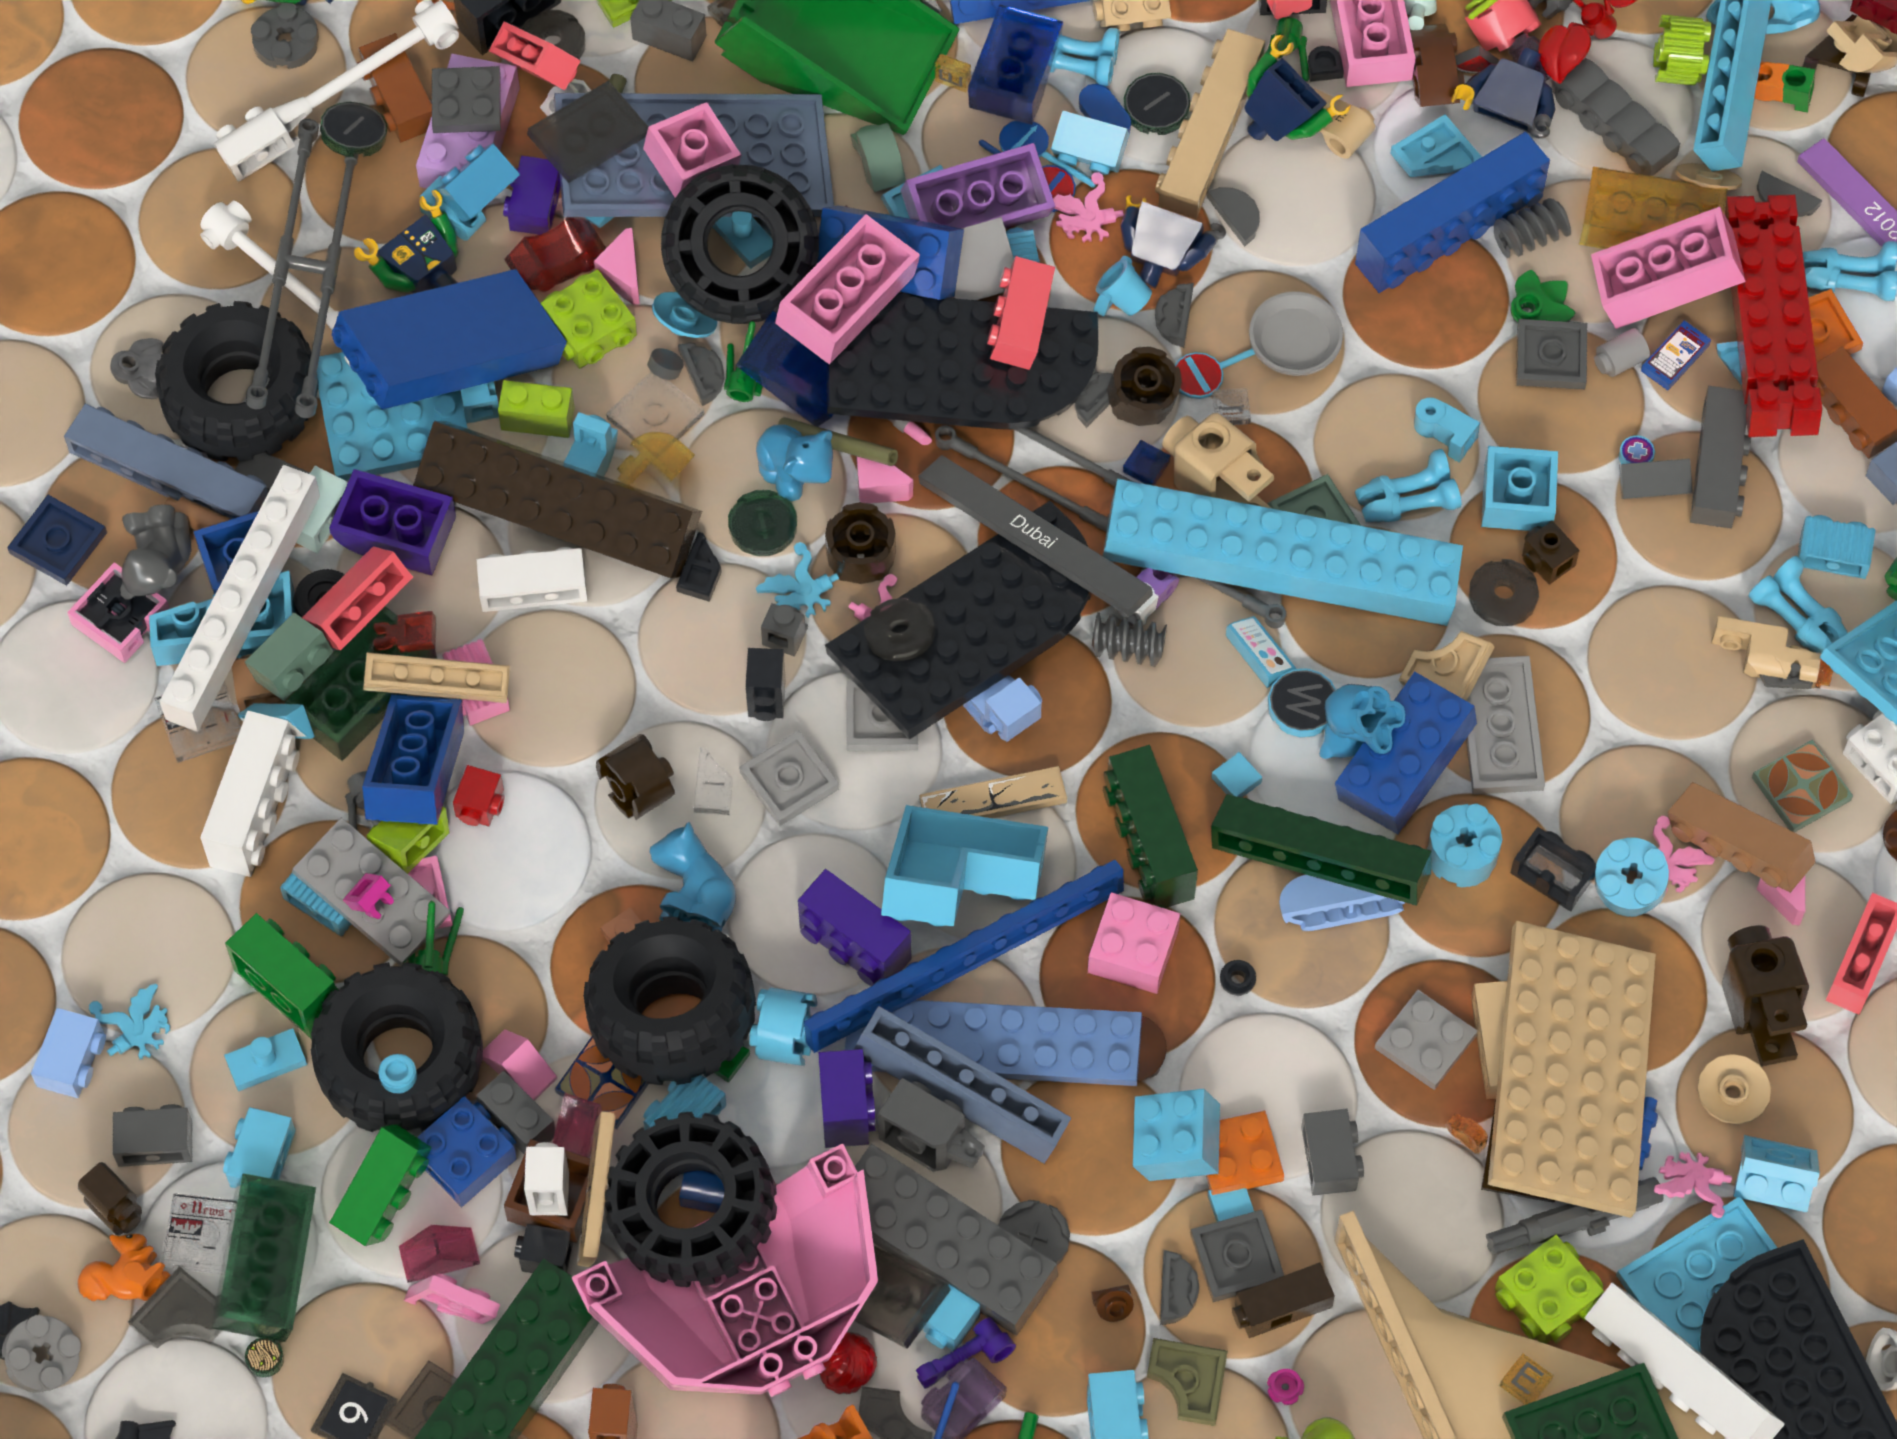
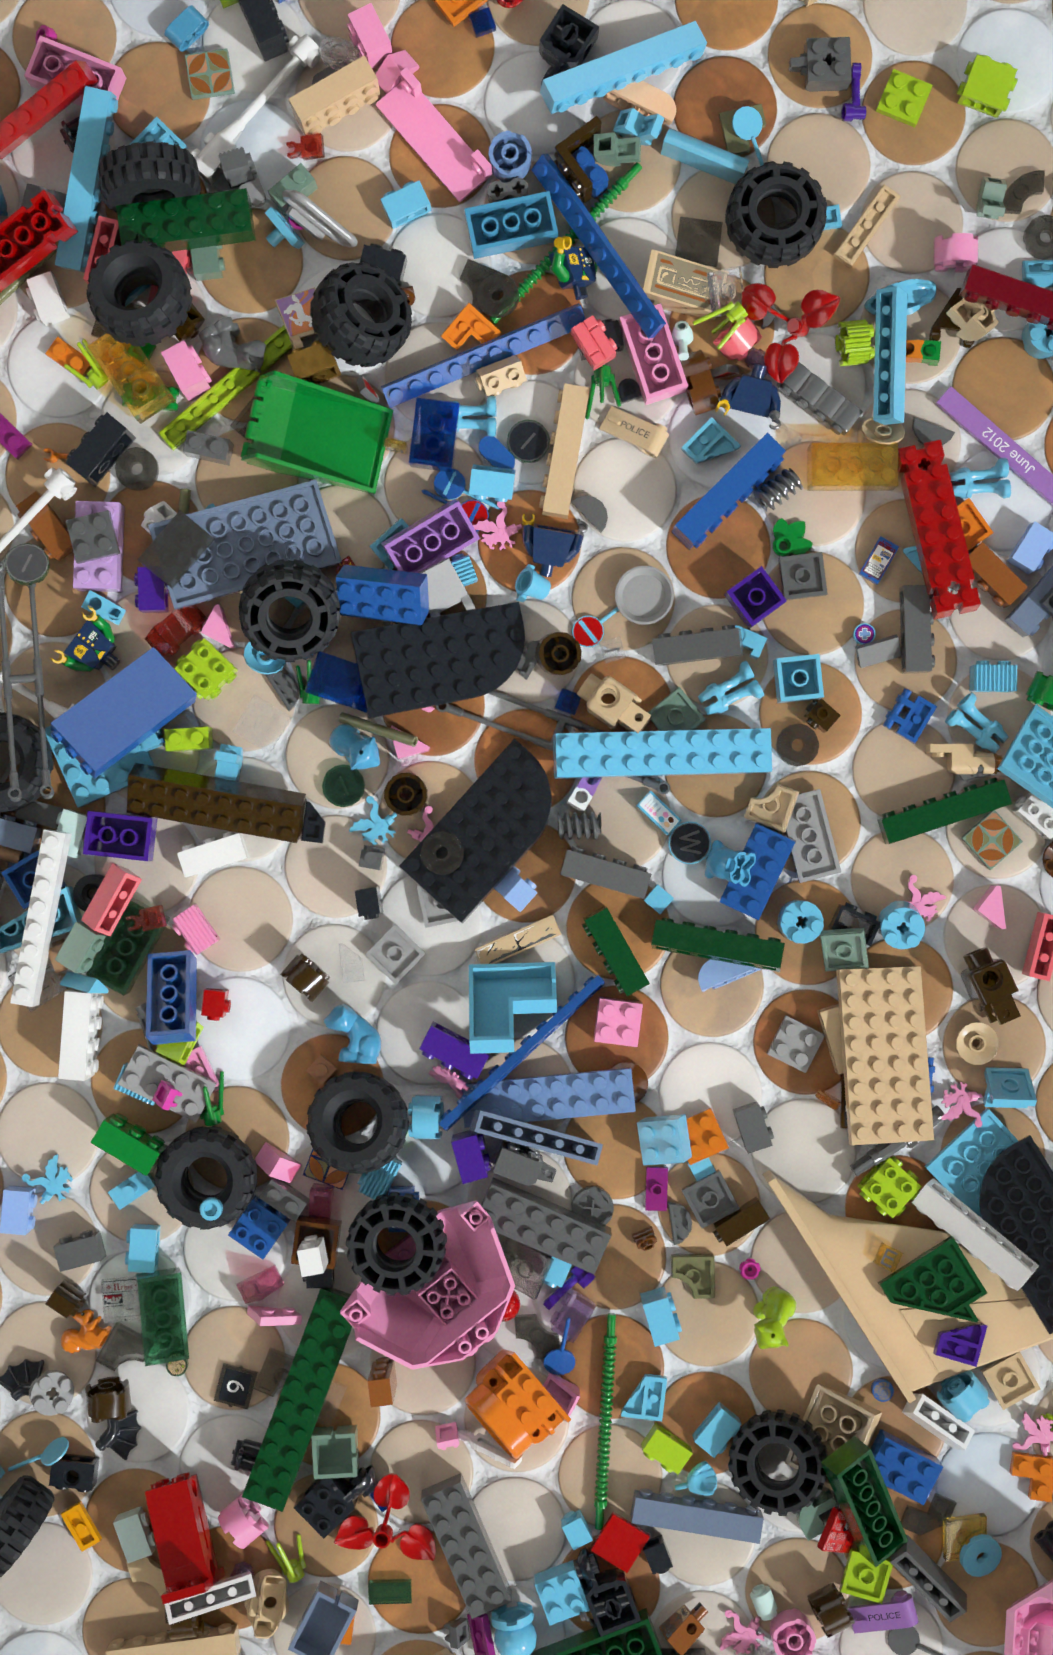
camera: 10 degrees left, 25 degrees up
(135, 1377) = (108, 1399): none -> dark brown brick
(381, 1185) = (218, 1262): green brick -> none
(436, 677) = (172, 941): tan tile -> none
(477, 181) = (114, 596): dark azure piece -> none
(535, 55) = (128, 497): coral brick -> none
(596, 1189) = (341, 1249): tan tile -> none
(659, 450) = (271, 756): clear yellow brick -> none
(665, 364) = (260, 690): dark grey tile -> none
(689, 146) = (244, 551): bright pink brick -> none
(834, 972) = (445, 1076): none -> bright pink piece
(847, 289) = (374, 621): bright pink brick -> none
(879, 156) = (361, 518): sand green brick -> none
(1020, 312) = (473, 622): coral brick -> none
(1036, 536) = (511, 771): dark grey tile -> none
(1148, 1225) = (656, 1188): none -> magenta plate
(1156, 710) = (607, 874): none -> dark grey brick
(1173, 314) = (565, 591): dark grey tile -> none
(1241, 968) = (681, 1034): black plate -> none
(1283, 101) = (611, 434): dark blue torso -> none
(1367, 414) = (697, 646): none -> dark grey brick
(1470, 364) = (755, 597): none -> dark purple brick
(1530, 894) = (844, 949): none -> sand green tile
(1621, 353) = (845, 568): light grey brick -> none
(1668, 267) = (869, 511): bright pink brick -> none
(1700, 587) = (915, 719): none -> blue plate
(1728, 726) = (945, 811): none -> dark green brick
(1741, 837) = (962, 889): medium nougat brick -> none

